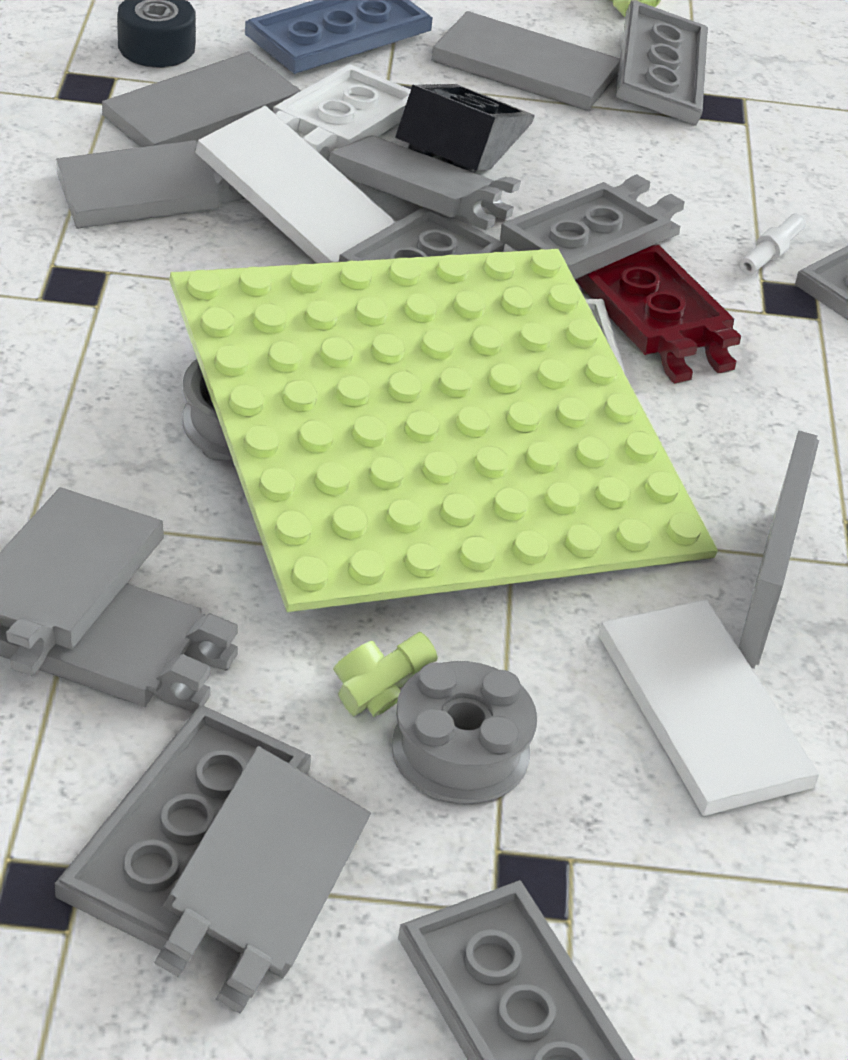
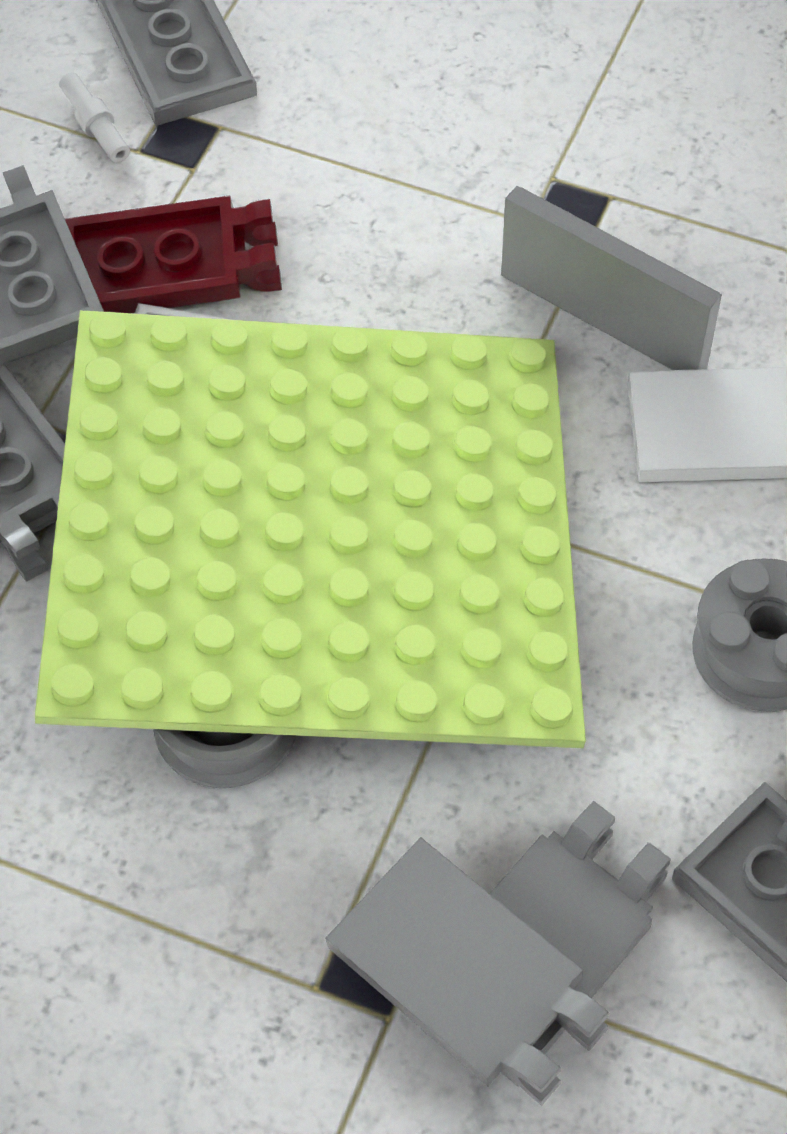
camera: 65 degrees left, 15 degrees up
(376, 679) = (674, 684): yellowish green plate -> none

